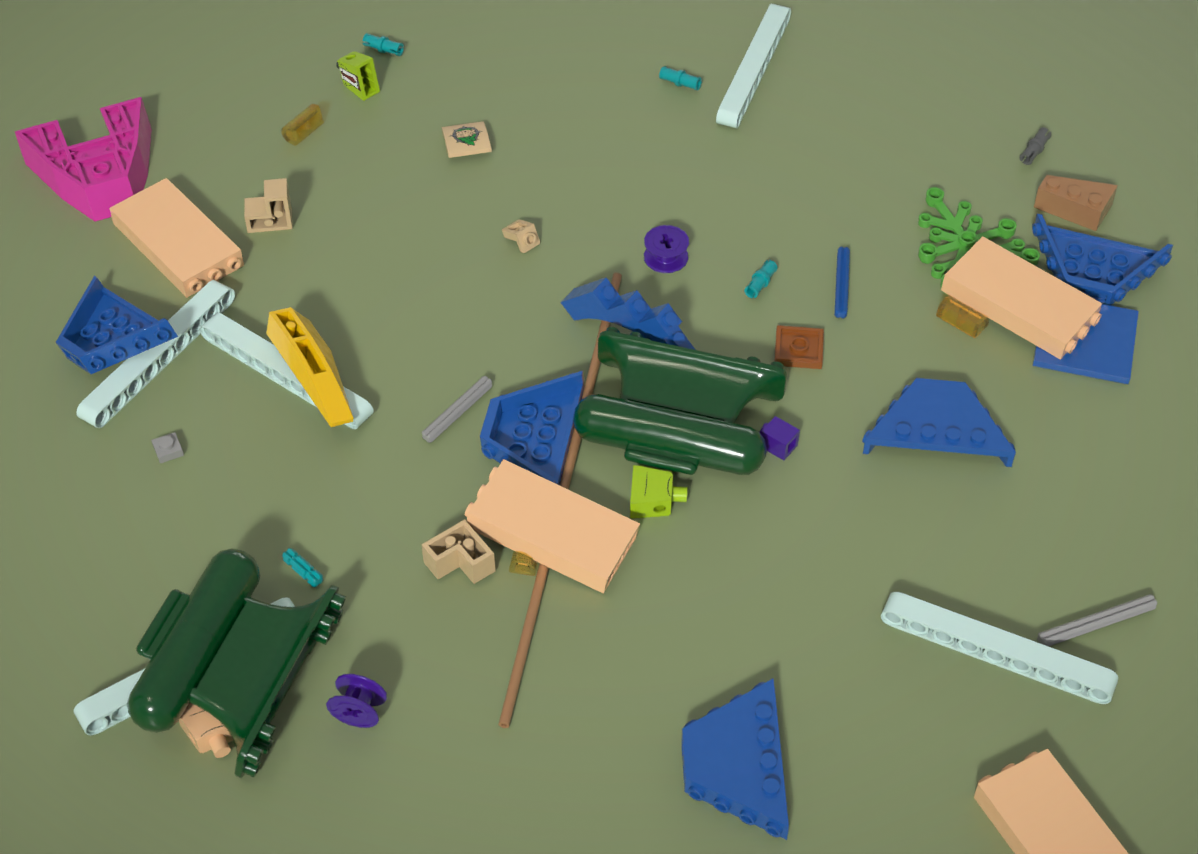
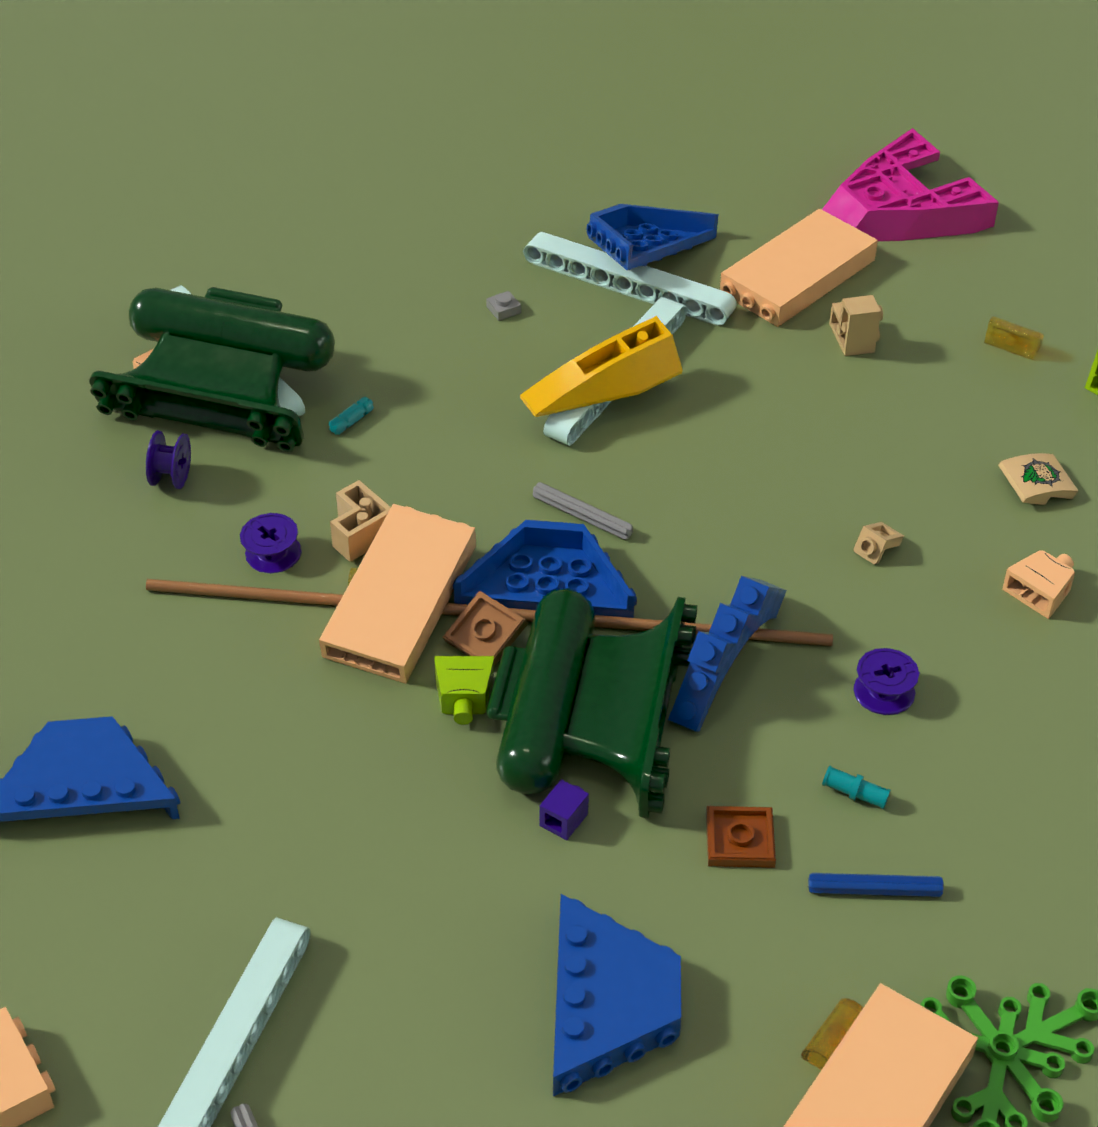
camera: 85 degrees right, 5 degrees down
(470, 625) = (271, 542): none -> dark purple piece
(577, 154) = (1040, 581): none -> light nougat torso
(593, 475) = (485, 628): none -> medium nougat tile

